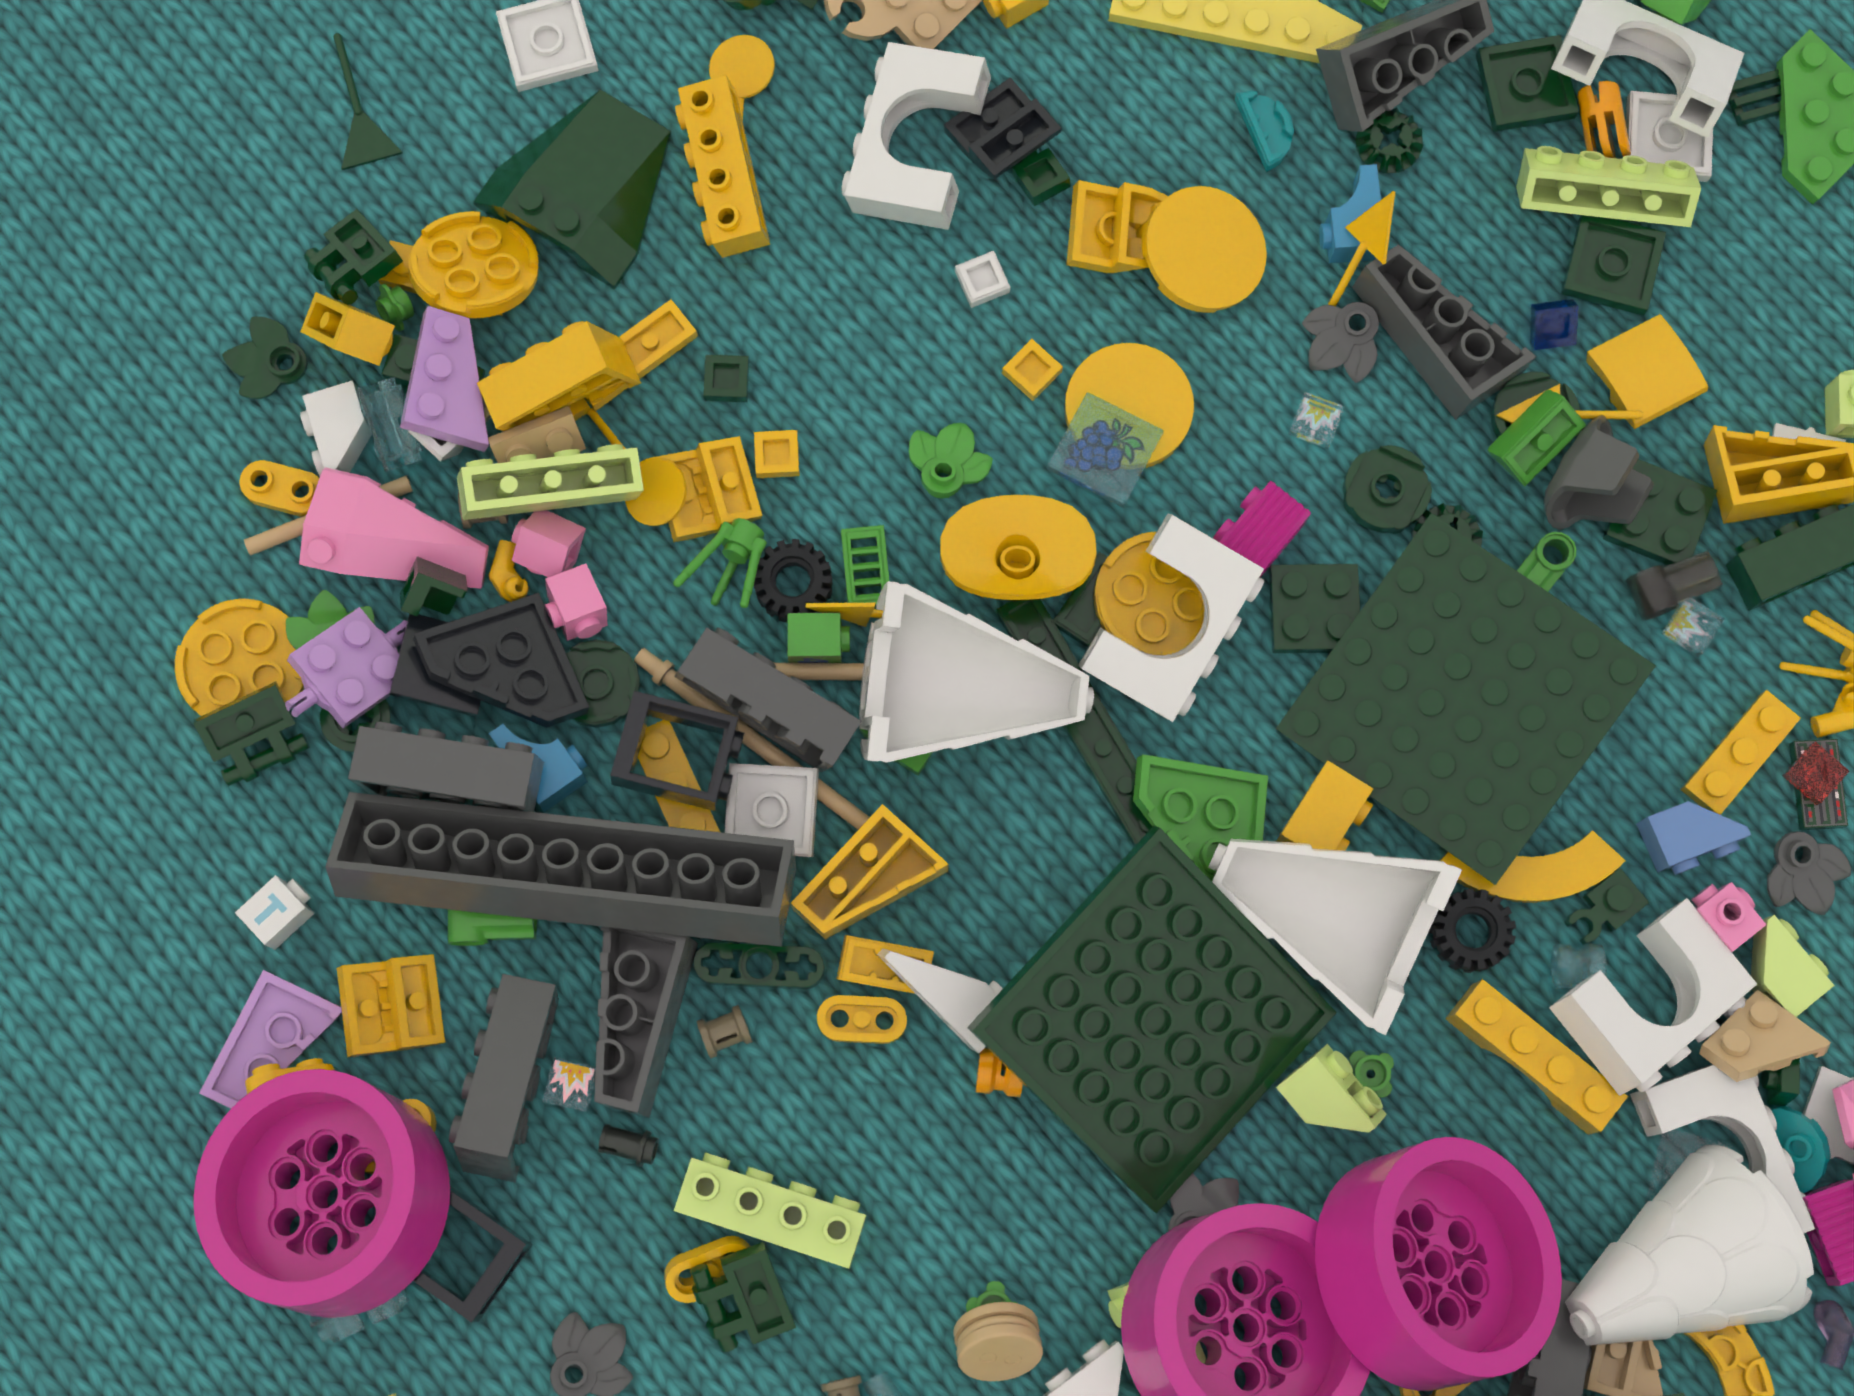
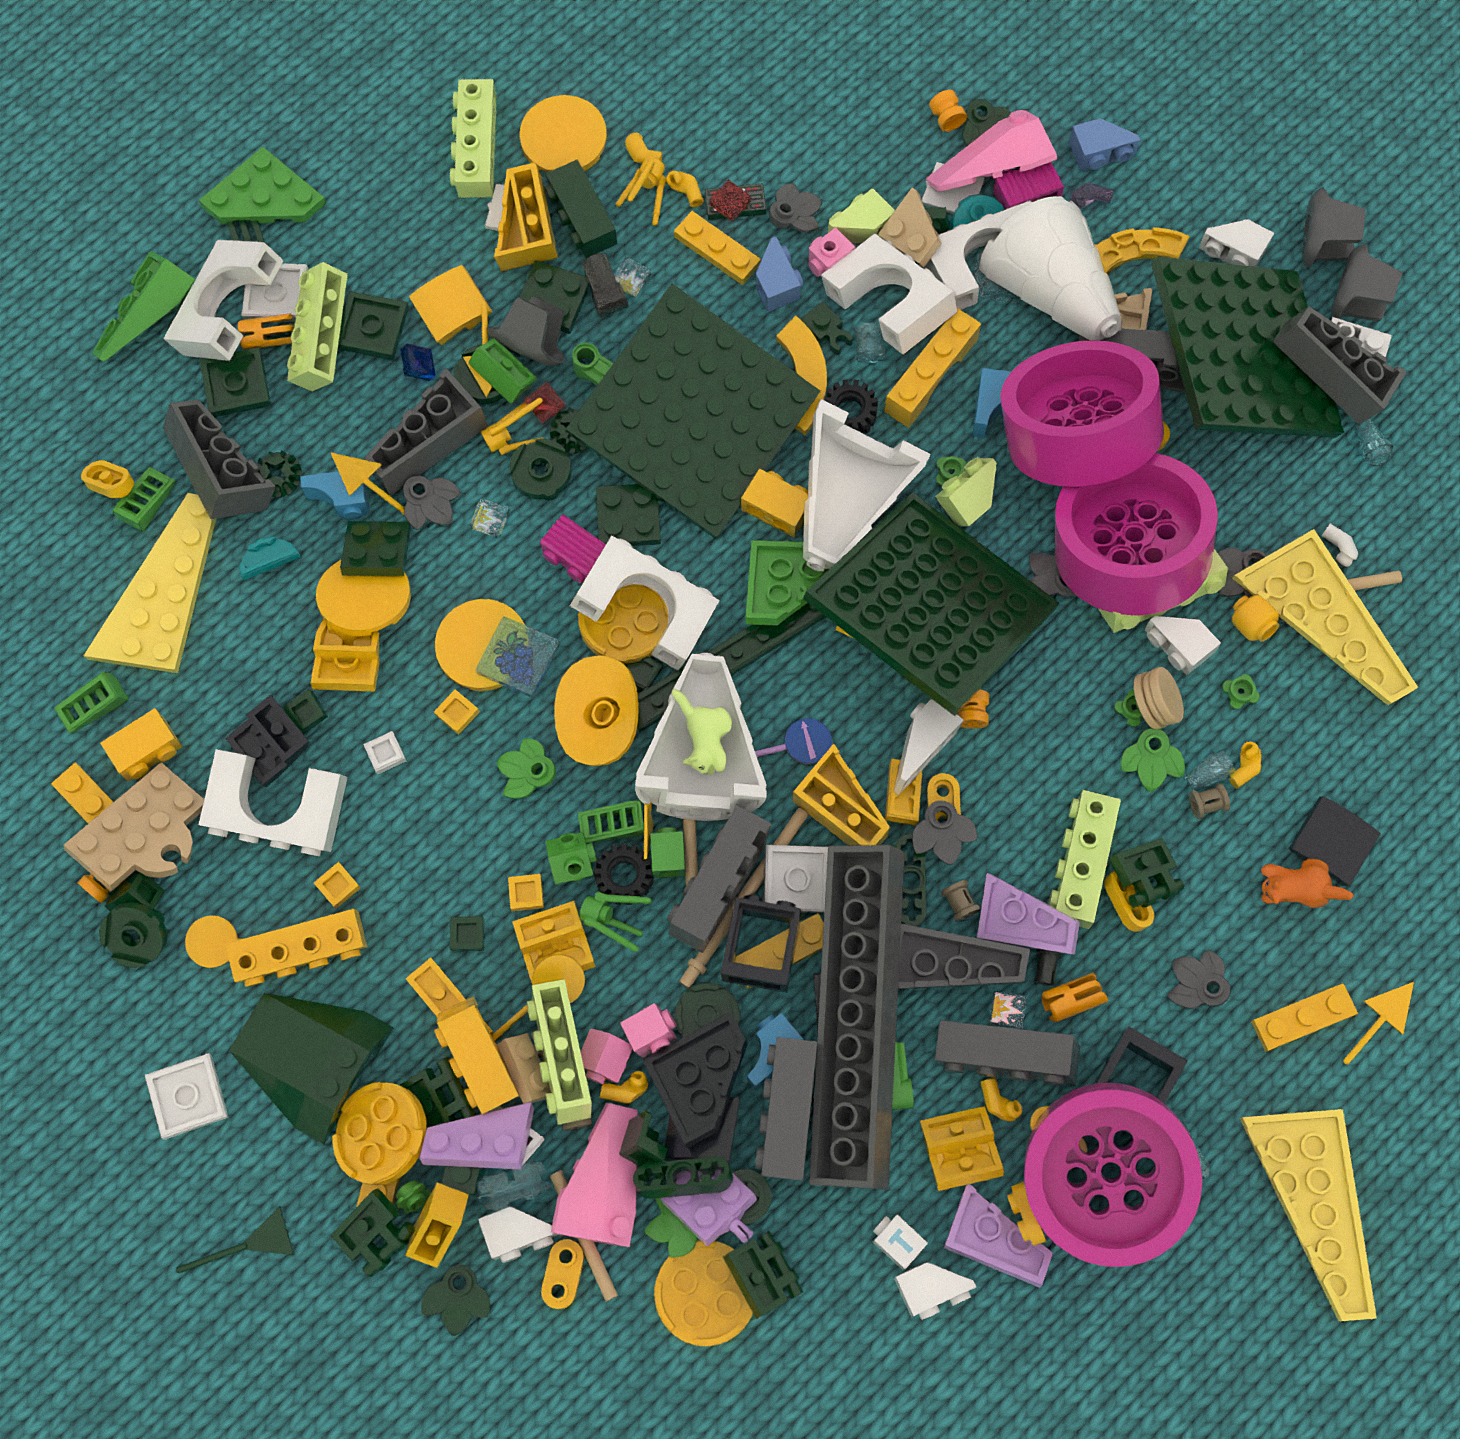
camera: 90 degrees left, 5 degrees down
(215, 949) = (930, 1286): none -> white slope
(363, 647) = (692, 1187): none -> dark green beam
(443, 1062) = (997, 1104): none -> yellow arm
(509, 330) = (432, 1098): none -> dark green plate
(572, 1159) = (1073, 997): none -> light orange arm
(686, 1114) = (1023, 920): none -> lavender wing
(802, 217) = (337, 885): none -> yellow plate
(812, 1012) = (943, 837): none -> dark grey plate
(816, 509) = (570, 857): none -> bright green brick
(906, 1328) = (1153, 764): none -> bright green plate
(968, 837) = (805, 741): none -> blue piece
(977, 690) = (706, 729): none -> yellowish green animal
(1271, 265) = (375, 548): none -> dark green plate
(1440, 432) = (498, 435): none -> yellow plant
(1489, 497) = (551, 403): none -> clear red tile
(1503, 1138) = (988, 399): none -> dark azure arch

